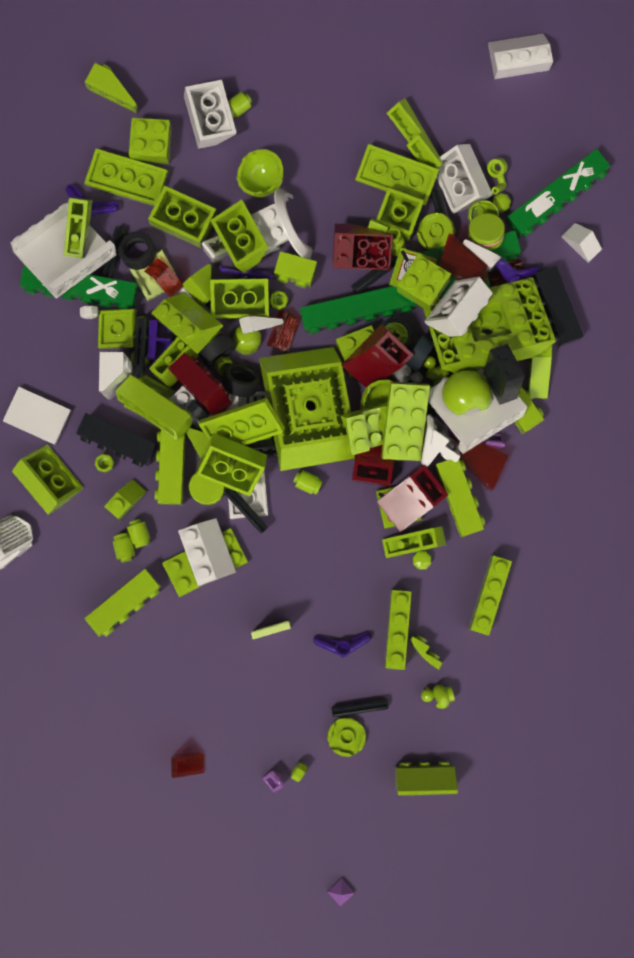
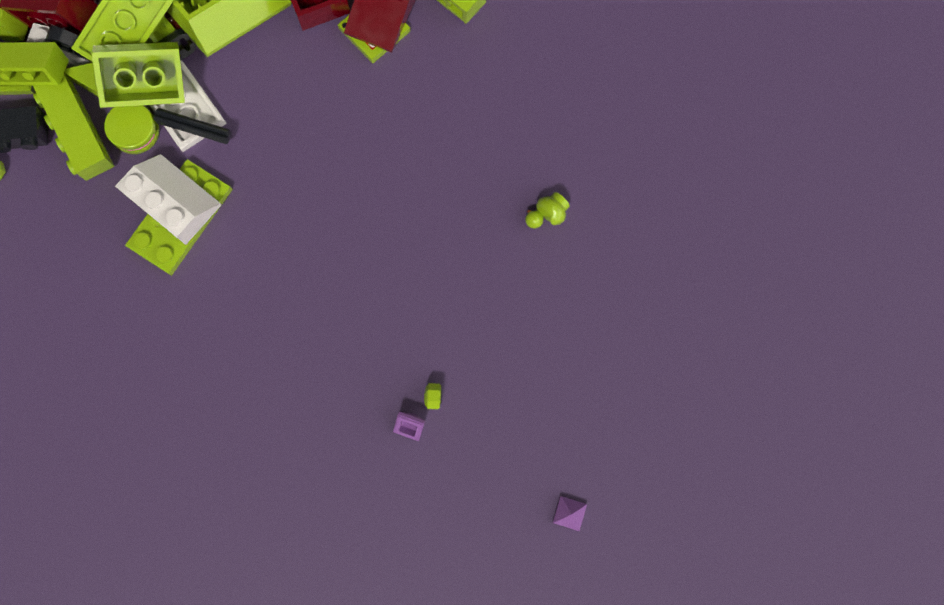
camera: 30 degrees left, 5 degrees down
(123, 547) = (66, 253): lime brick -> none
(123, 602) = (100, 317): lime brick -> none
(125, 499) = (37, 198): lime slope -> none
(138, 533) = (76, 226): lime brick -> none
(187, 764) = (289, 468): clear red slope -> none
(271, 629) = (300, 244): yellowish green tile -> none
(307, 482) = (250, 57): lime brick -> none
(342, 648) = (402, 220): dark purple piece -> none
(346, 736) = (467, 323): lime tile -> none
(361, 707) = (462, 280): black axle -> none
(397, 629) = (454, 162): lime brick -> none
(414, 542) = (415, 54): lime slope -> none
(420, 645) = (491, 167): lime slope -> none
(421, 560) = (436, 72): lime tile -> none
(425, 778) = (589, 313): lime slope -> none
(489, 595) = (538, 64): lime brick -> none

